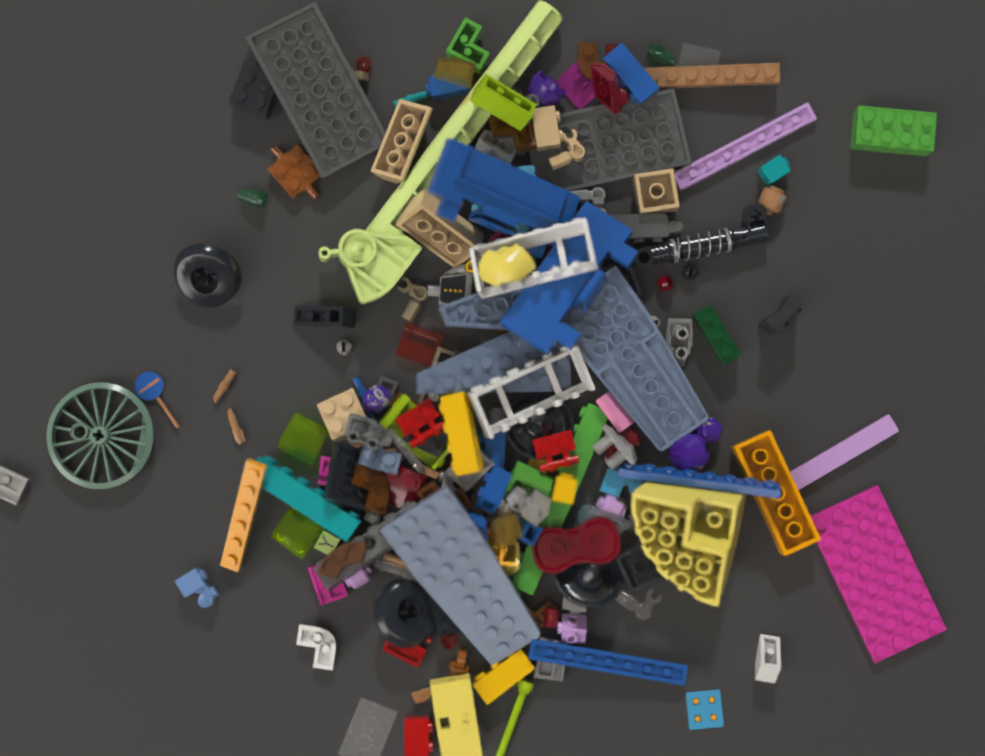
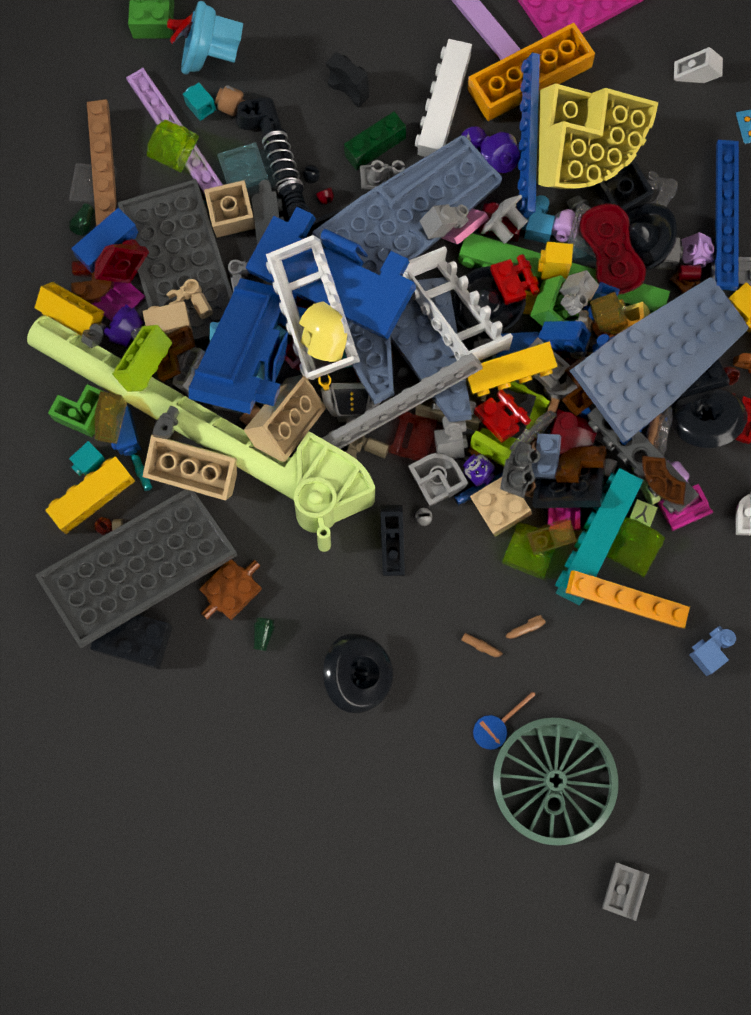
camera: 90 degrees left, 10 degrees down
(309, 457) = (552, 536): none -> clear yellow slope
(374, 361) = (438, 477): none -> light grey brick
(391, 53) = (89, 495): none -> yellow brick
(405, 376) = (450, 439): none -> light grey brick
(423, 51) = (86, 459): none -> teal brick
(440, 338) = (403, 402): none -> light grey plate
(441, 122) = (166, 420): none -> dark grey piece
(537, 60) = (93, 335): none -> dark grey piece
(568, 39) = (67, 308): none -> yellow brick
(615, 389) = (442, 219): none -> light grey brick
(701, 207) = (243, 164): none -> clear light blue plate
(729, 141) = (171, 145): none -> clear neon green slope
(755, 406) = (444, 97): none -> white brick
(833, 179) = (206, 36): none -> medium azure piece

